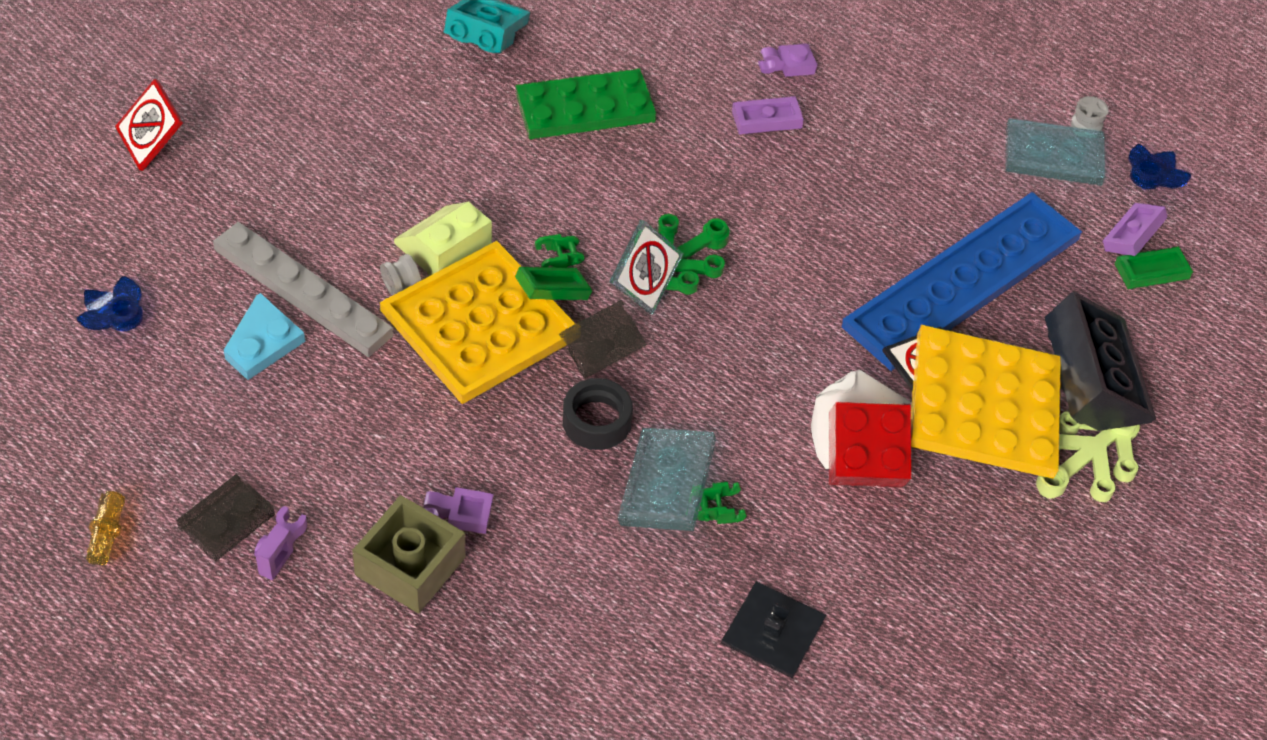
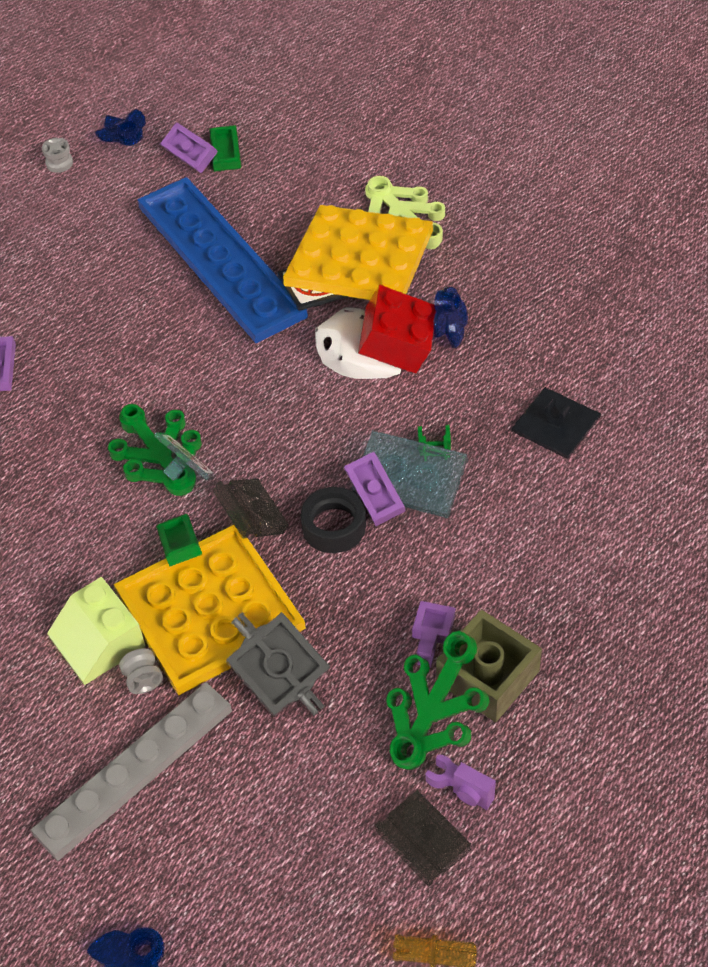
camera: 75 degrees left, 0 degrees up
(261, 338) = (195, 807): medium azure wing -> none
(320, 495) = (432, 706): none -> green plant
(407, 376) = (277, 664): none -> dark grey plate
(559, 243) = (119, 539): green piece -> none
(633, 440) = (374, 488): none -> medium lavender plate
(898, 502) = (450, 316): none -> clear blue plate
(1055, 152) = (87, 185): clear light blue tile -> none
(1098, 365) = (332, 184): black slope -> none

